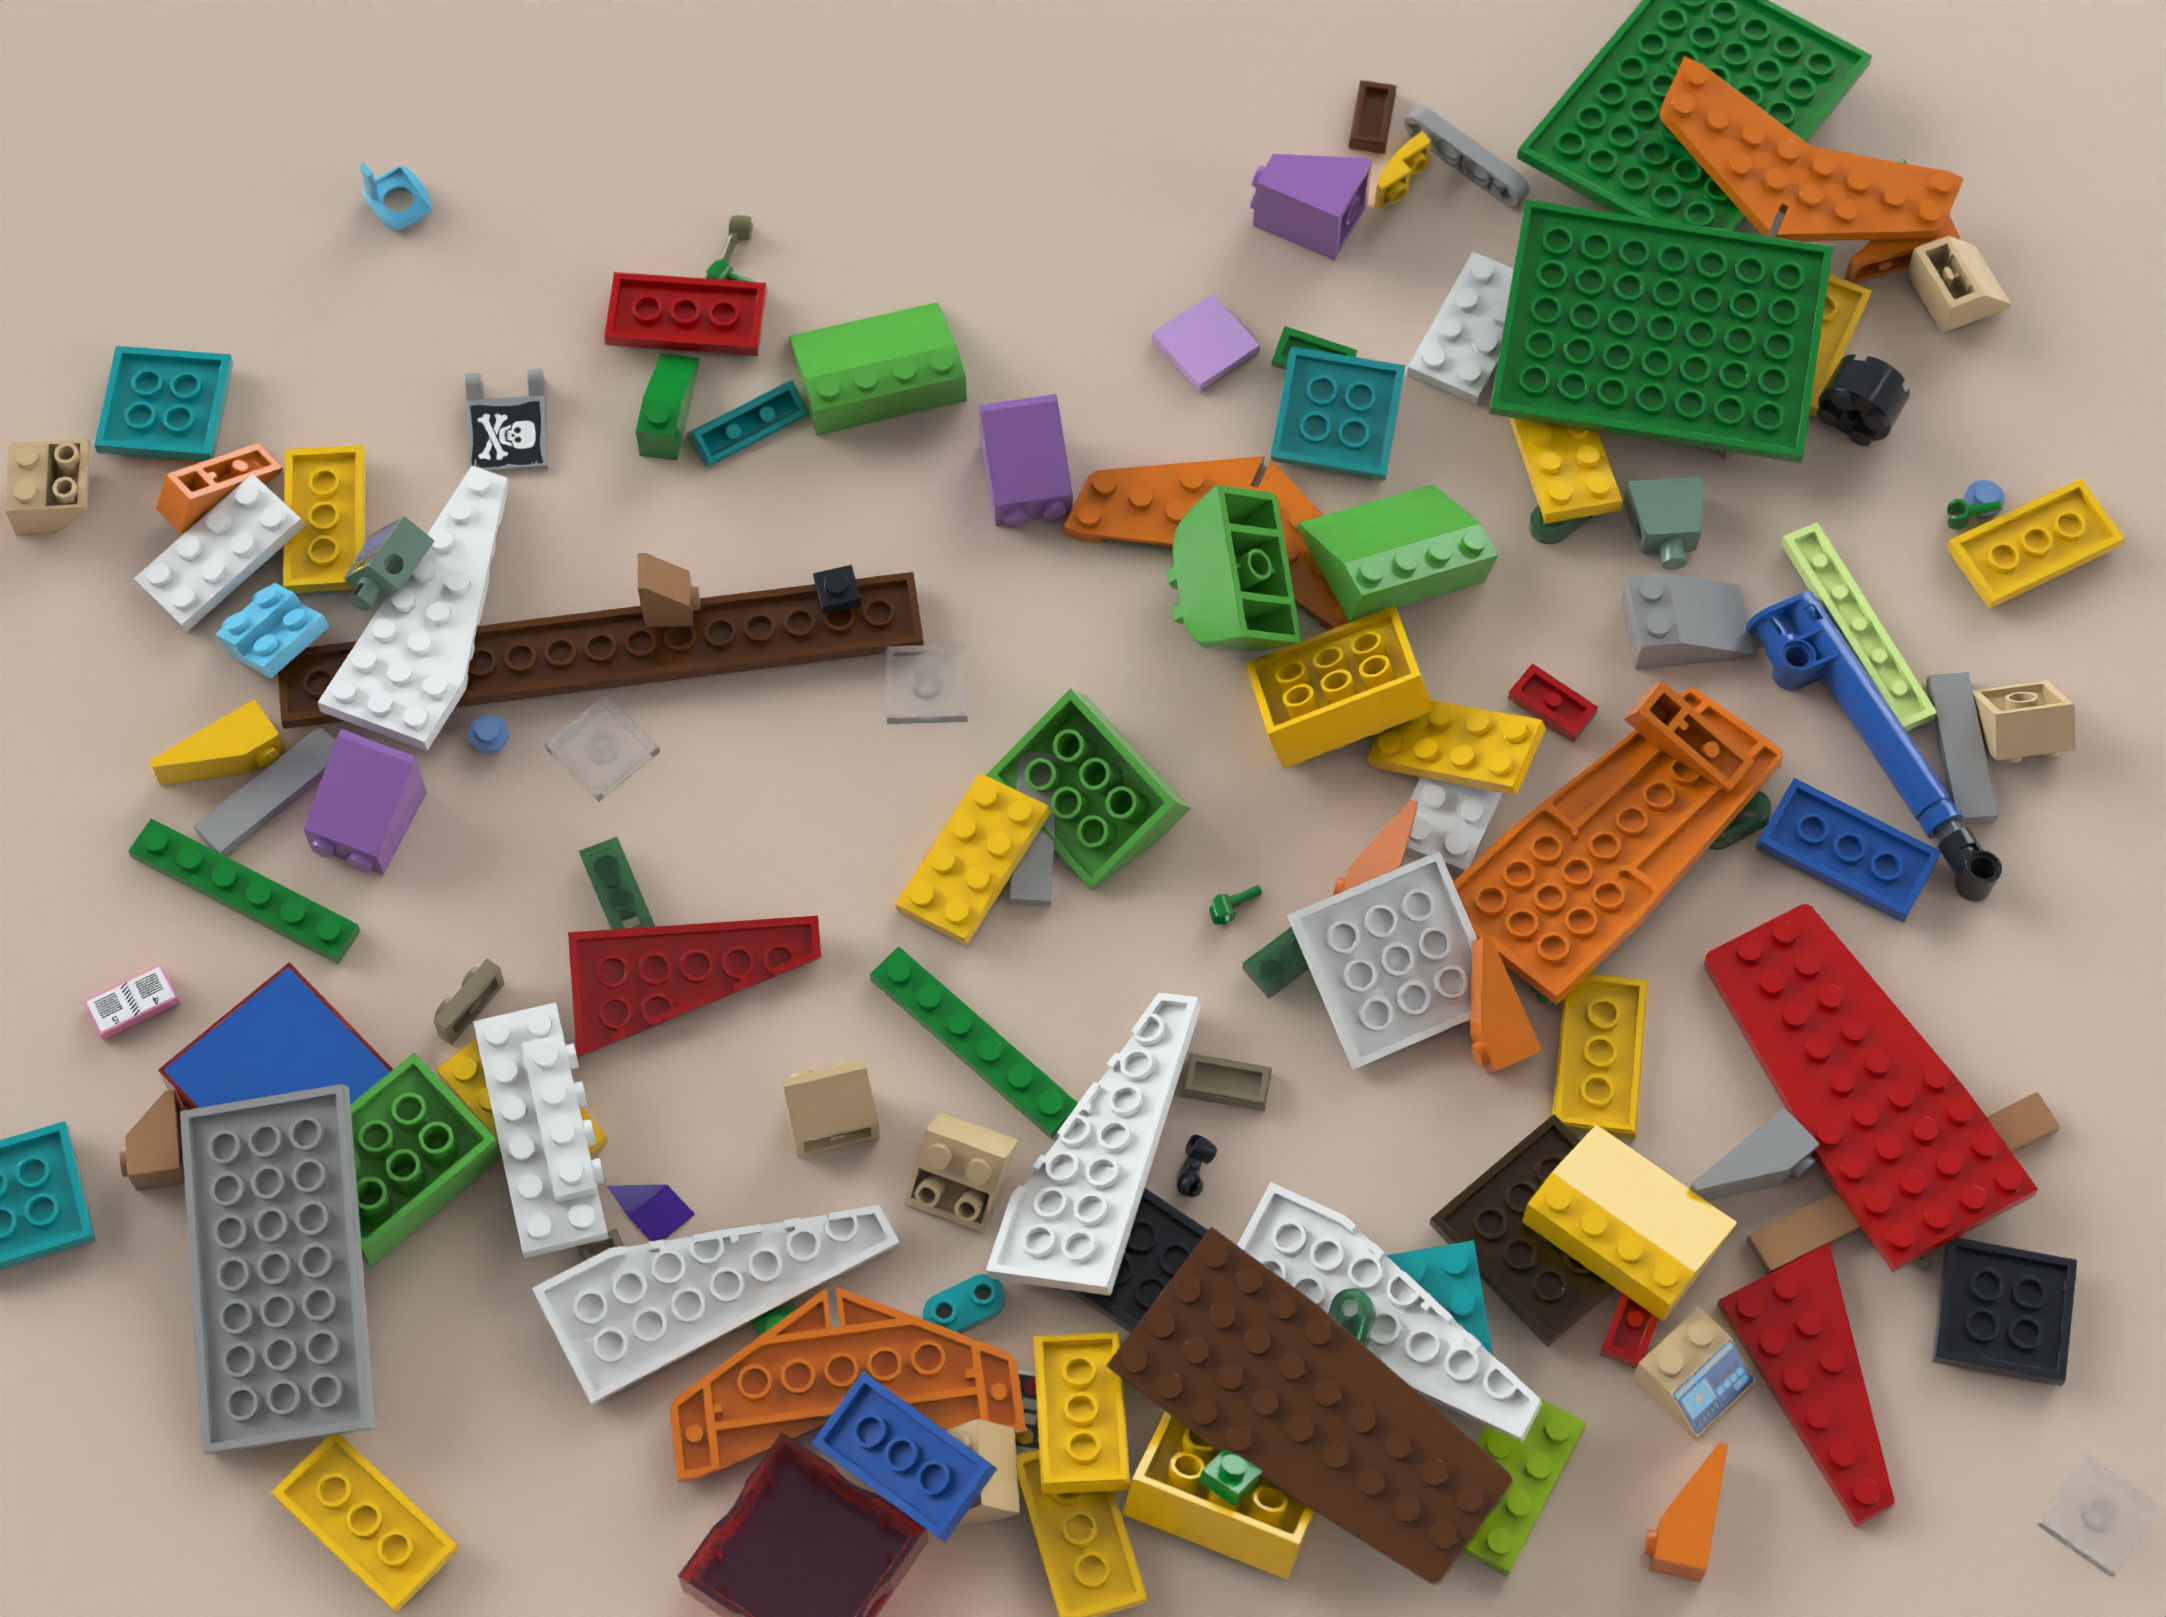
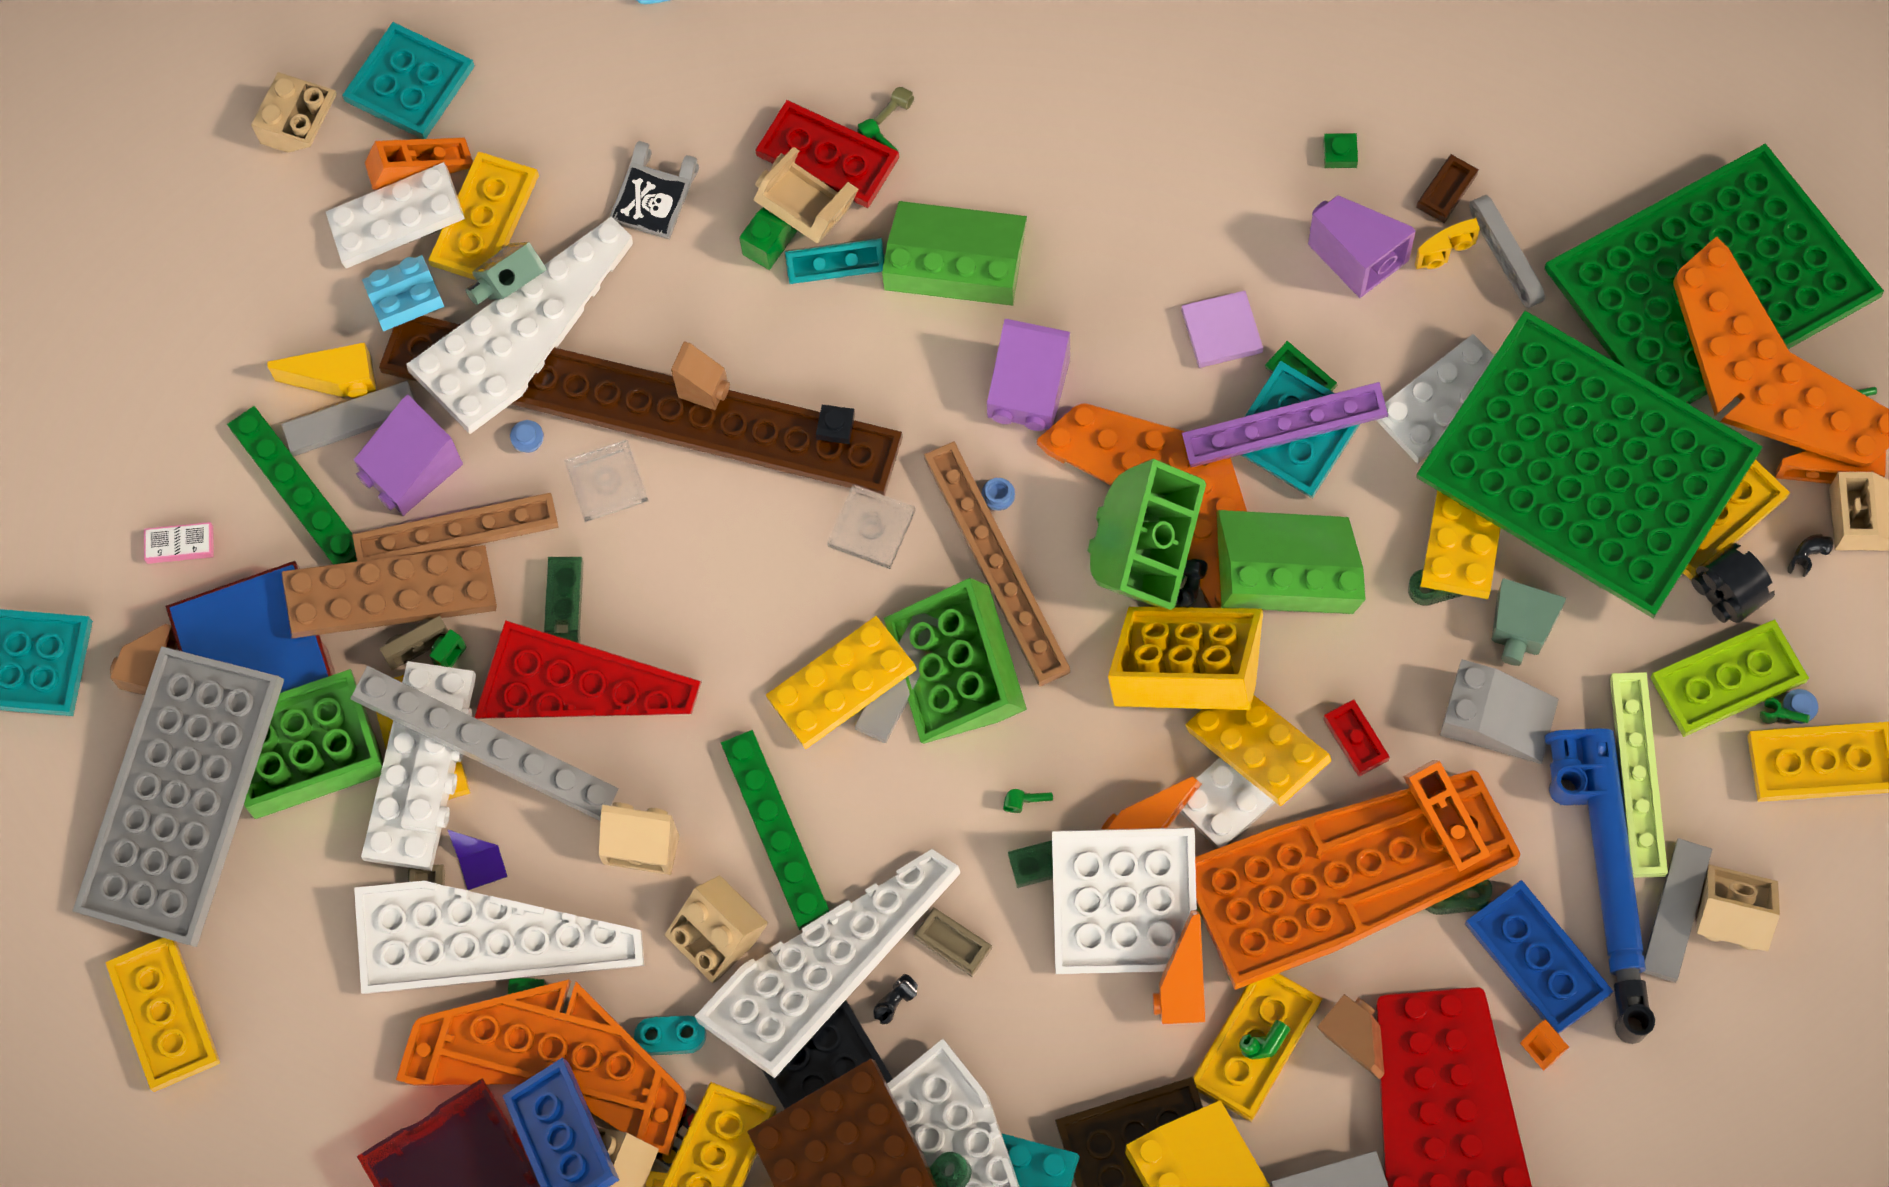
camera: 30 degrees right, 5 degrees up
(412, 956) = (388, 591): none -> medium nougat plate
(456, 864) = (459, 529): none -> medium nougat plate
(509, 993) = (447, 649): none -> green plate
(609, 1071) = (483, 743): none -> light grey plate
(684, 367) = (802, 198): none -> tan panel
(1048, 598) = (998, 494): none -> medium blue plate
(1083, 670) = (997, 564): none -> medium nougat plate
(1241, 117) = (1340, 150): none -> green plate
(1303, 597) = (1195, 570): none -> black arm
(1327, 409) = (1285, 424): none -> medium lavender plate
(1614, 1051) = (1264, 1046): none -> green arm
(1701, 1000) = (1356, 1033): none -> medium nougat slope
(1898, 933) = (1544, 1044): none -> orange plate
(1901, 497) = (1729, 678): none -> lime plate
(1916, 337) = (1811, 545): none -> black arm

